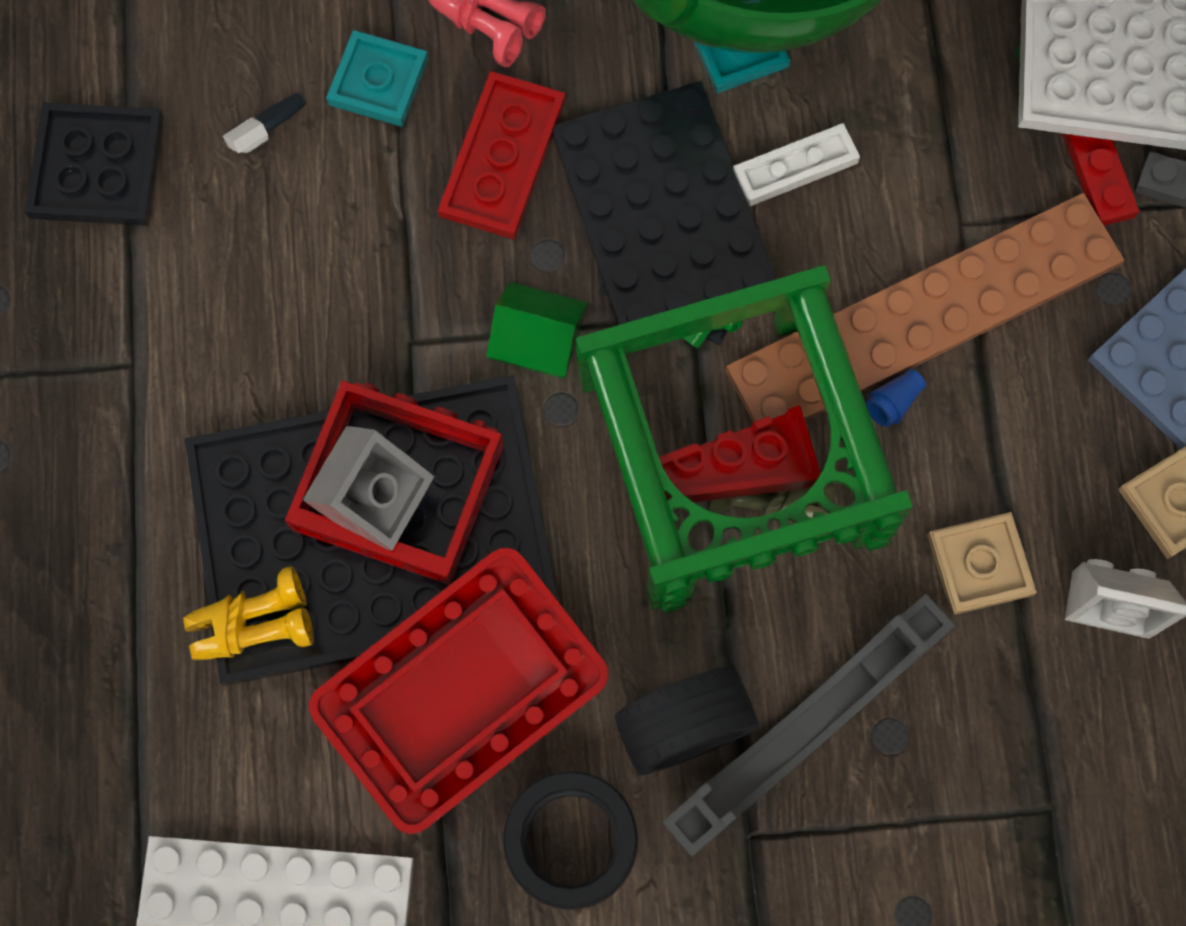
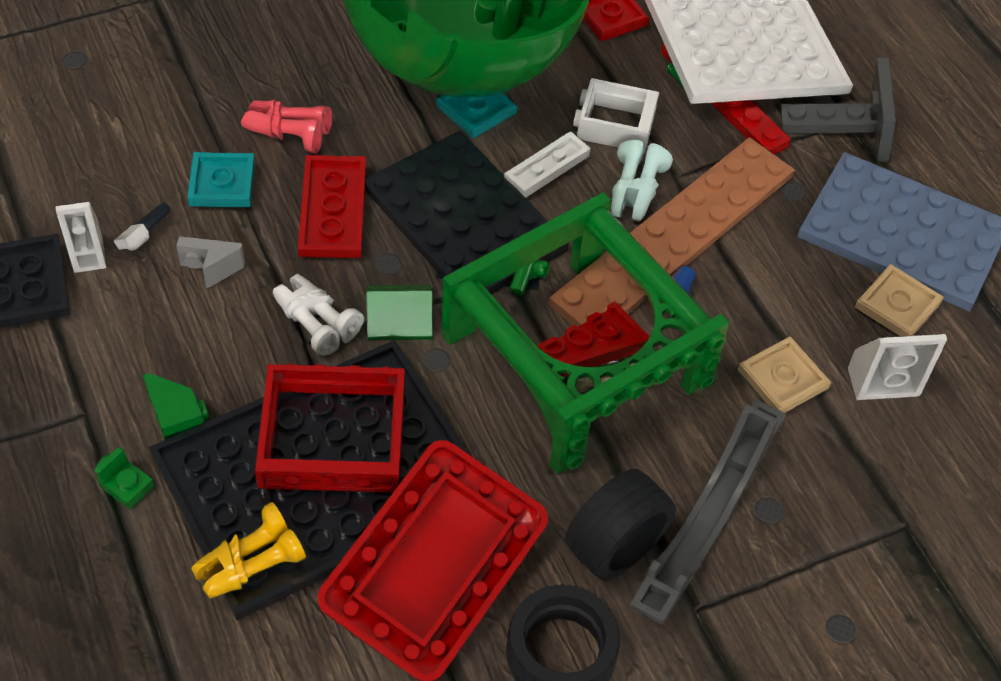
camera: 25 degrees left, 20 degrees down
(147, 468) = (122, 478): none -> green bracket
(181, 131) = (82, 236): none -> white slope
(227, 394) = (174, 405): none -> green slope
(336, 196) = (216, 257): none -> light grey slope
(369, 486) = (316, 423): light grey slope -> none
(433, 289) = (310, 301): none -> white piece
(904, 241) = (638, 191): none -> light aqua piece
(929, 84) = (620, 98): none -> white window

